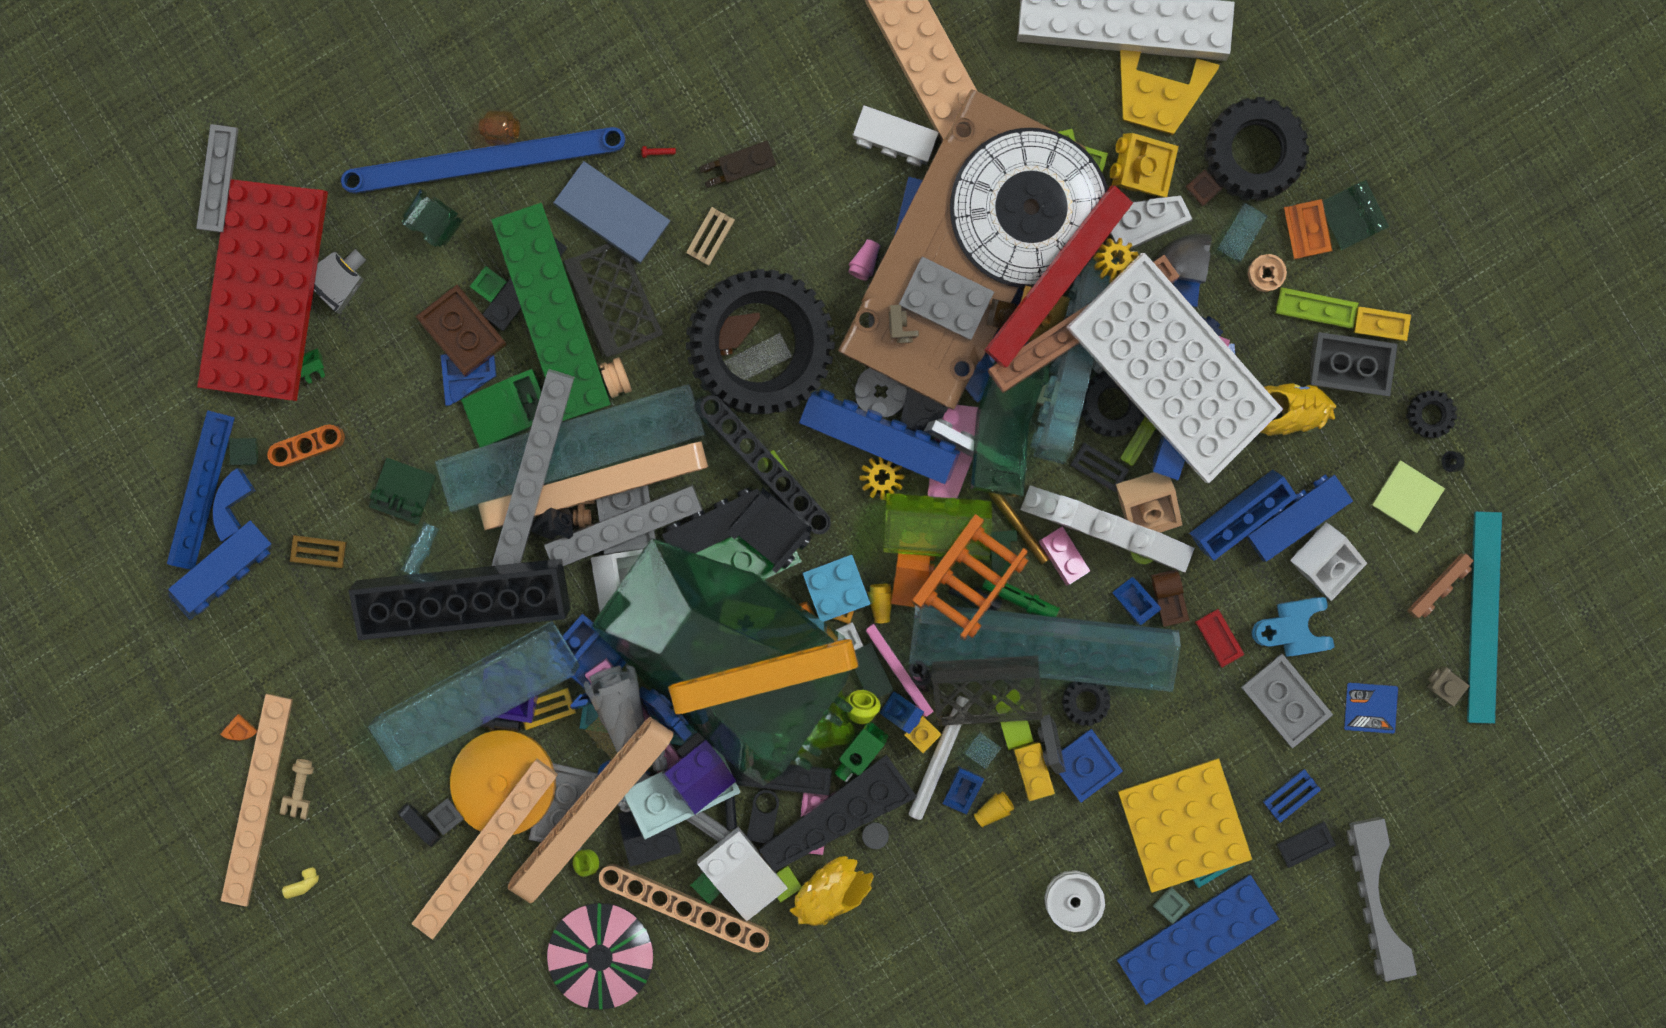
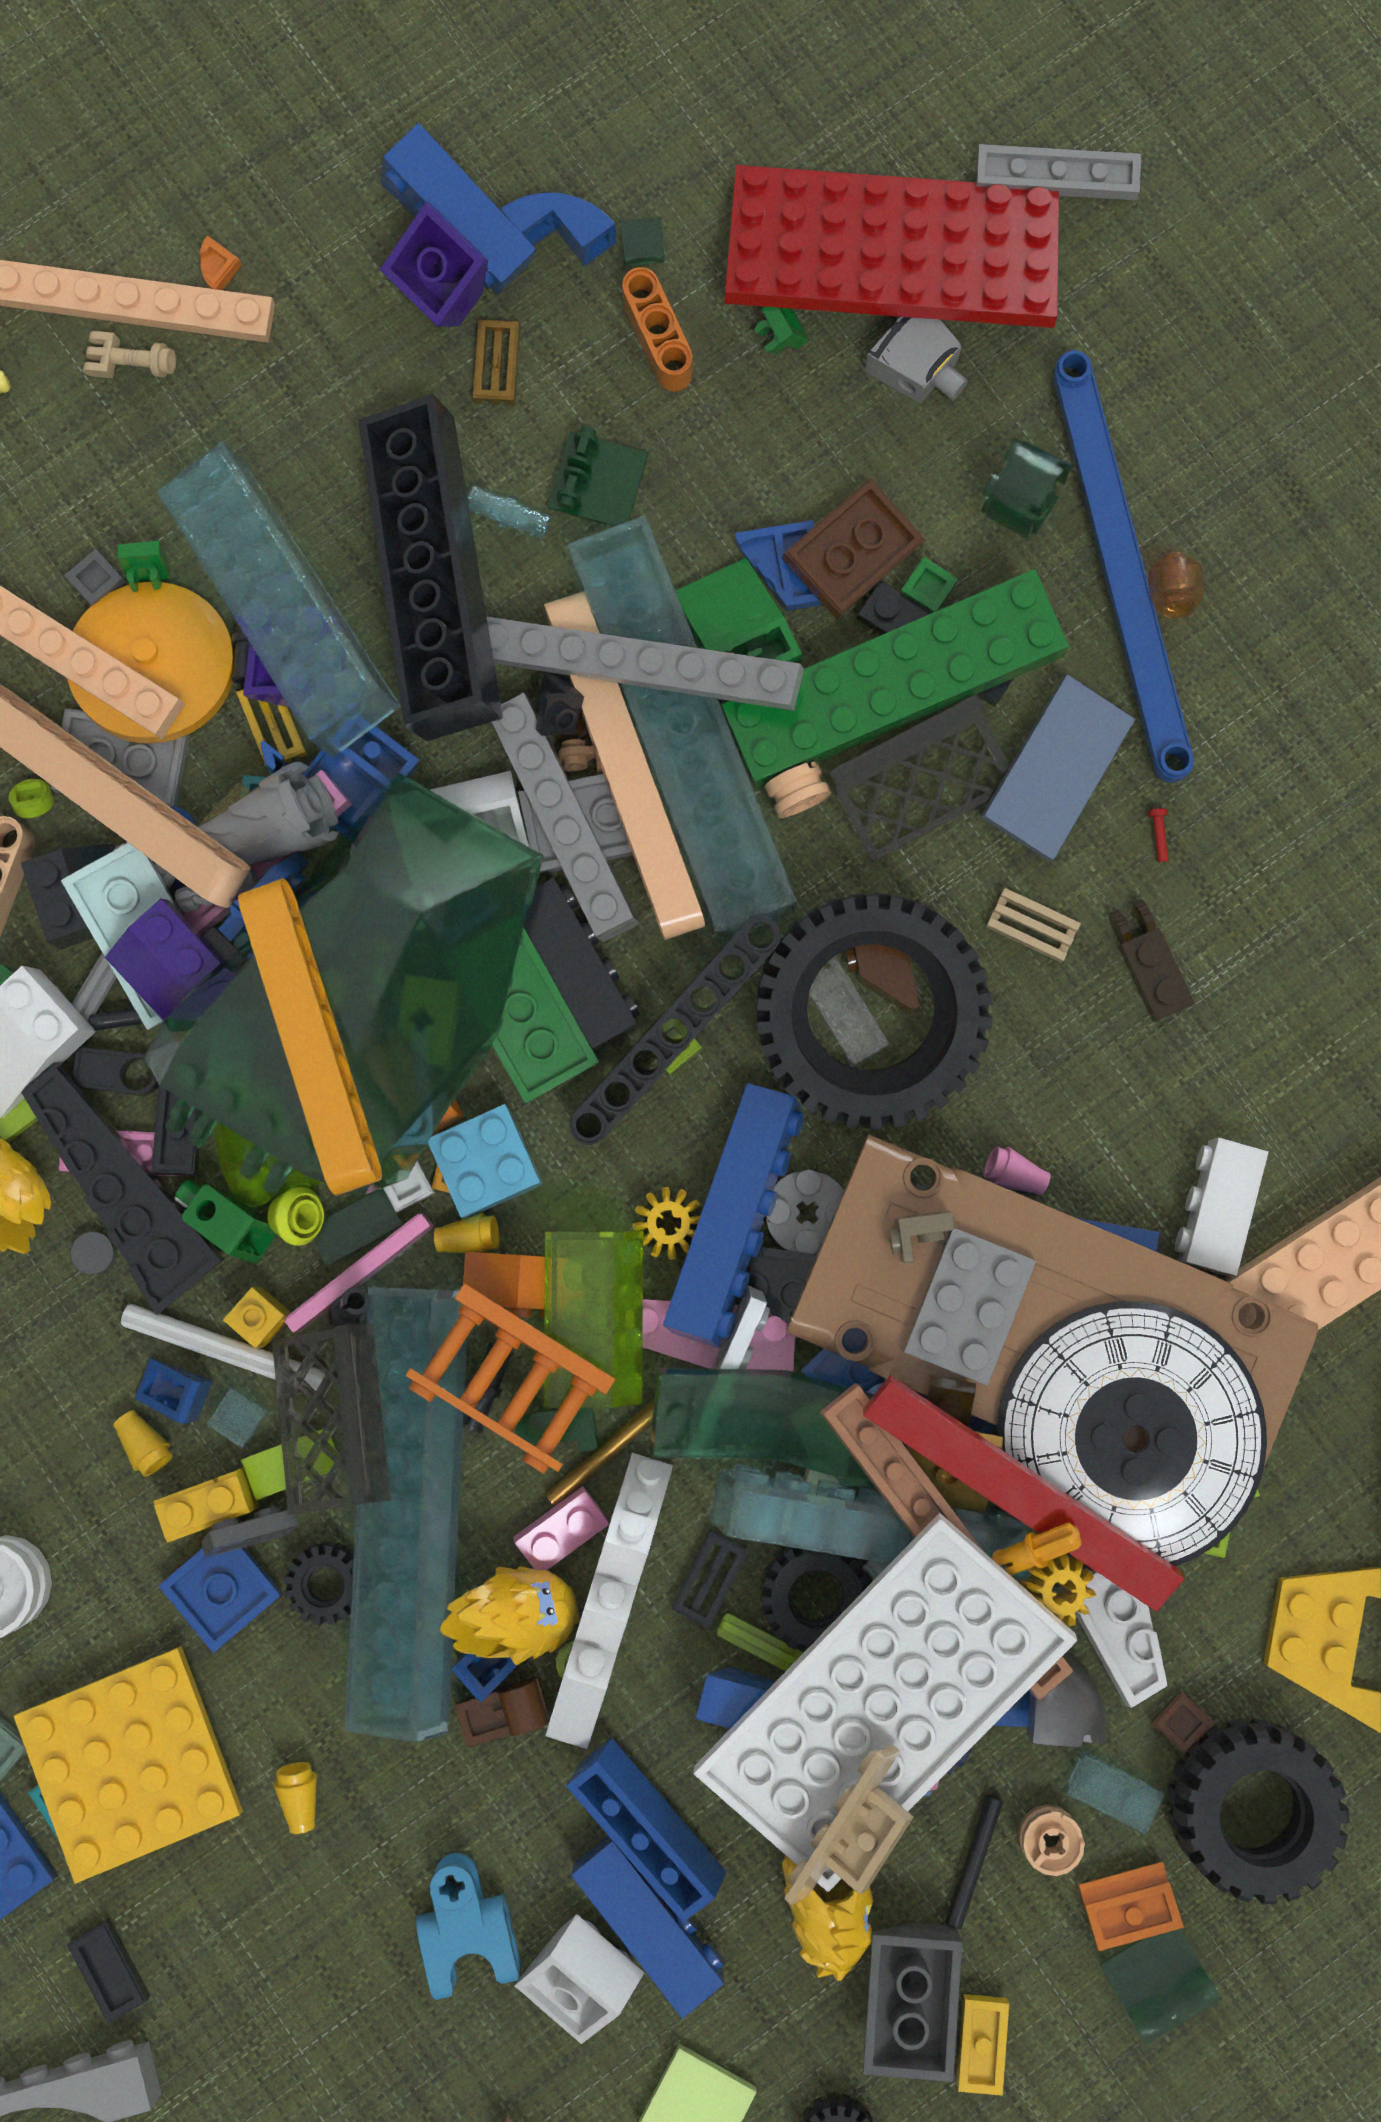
camera: 90 degrees right, 5 degrees down
(200, 490) = (591, 179): blue plate -> none
(261, 585) = (437, 268): none -> dark purple slope
(419, 824) = (80, 538): black beam -> none
(438, 784) = (144, 563): none -> green tile
(771, 529) = (571, 1049): black panel -> none
(902, 712) = (288, 1281): blue plate -> none
(1030, 602) = (483, 1474): green pin -> none
(1091, 270) = (1038, 1549): none -> light orange axle
(1112, 586) = (513, 1615): none -> yellow head
(1143, 164) = (1213, 1620): yellow plate -> none
(1150, 502) = (657, 1668): light nougat slope -> none
(1209, 725) = (297, 1795): none -> yellow cone
(1219, 638) = (442, 1799): red tile -> none
(1249, 388) = (859, 1835): none -> tan bracket
(1277, 320) = (974, 1861): none -> black bar
(1286, 700) = (343, 1923): light grey plate -> none
(1309, 782) = (176, 1953): blue tile -> none
(1316, 308) = (999, 1928): lime tile -> none
(1371, 708) = (341, 2066): blue sticker -> none

